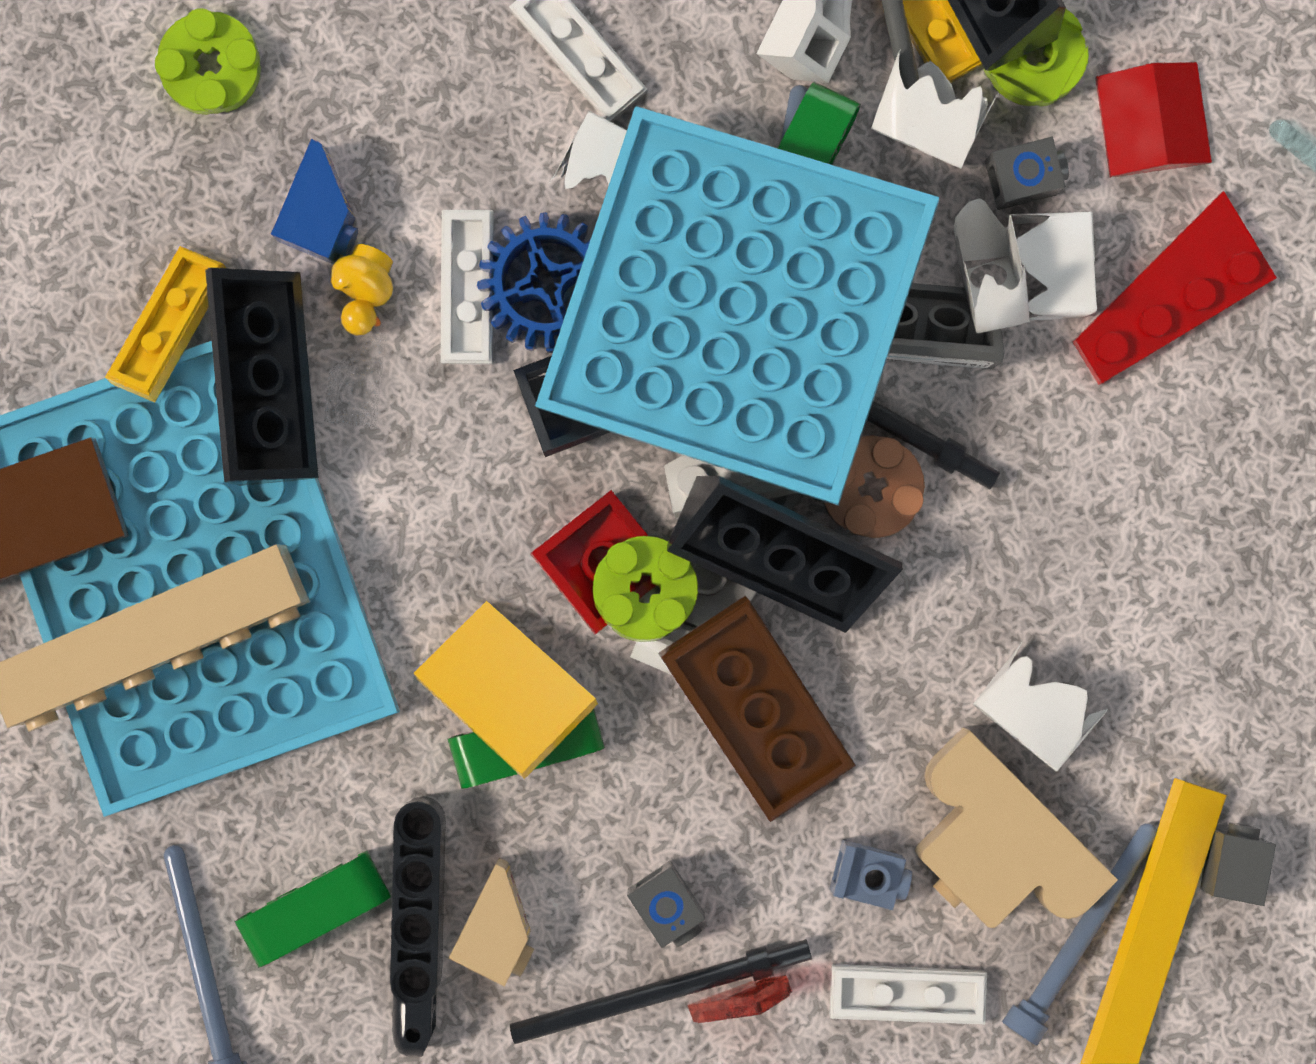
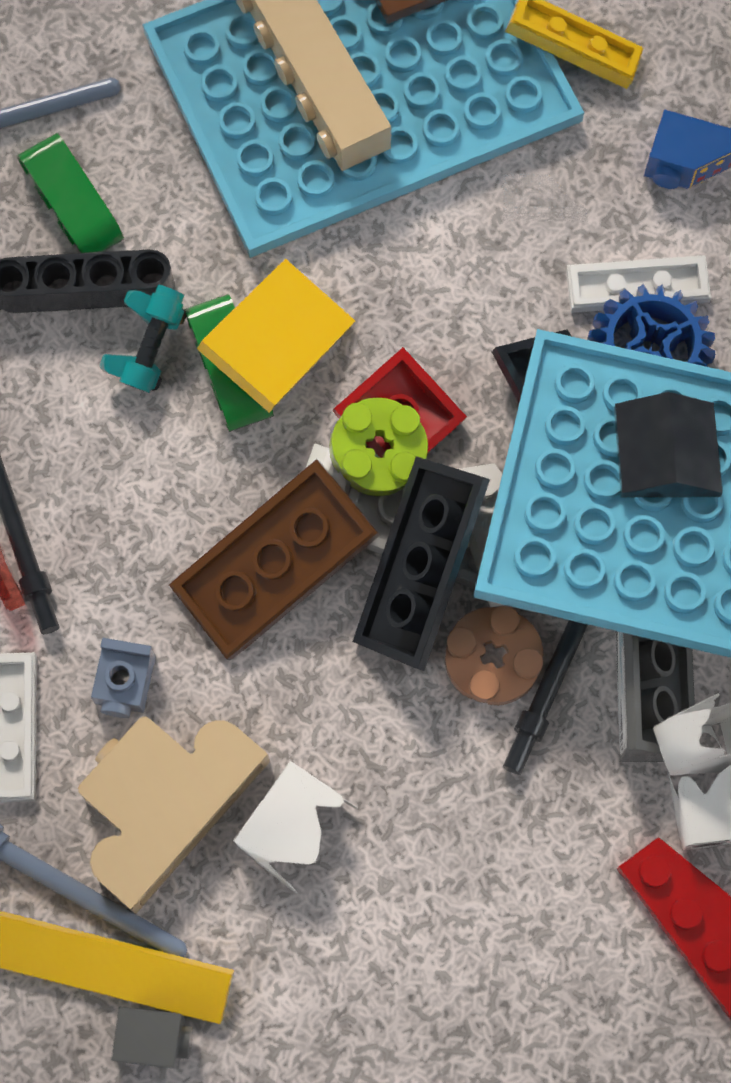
camera: 85 degrees right, 15 degrees down
(261, 376) = (537, 106): black slope -> none
(367, 281) = (634, 196): yellow animal -> none
(468, 813) = (161, 312): none -> teal piece
(496, 930) = (58, 348): tan slope -> none
(667, 906) = (85, 495): dark grey brick -> none
(691, 282) = (667, 447): none -> black slope

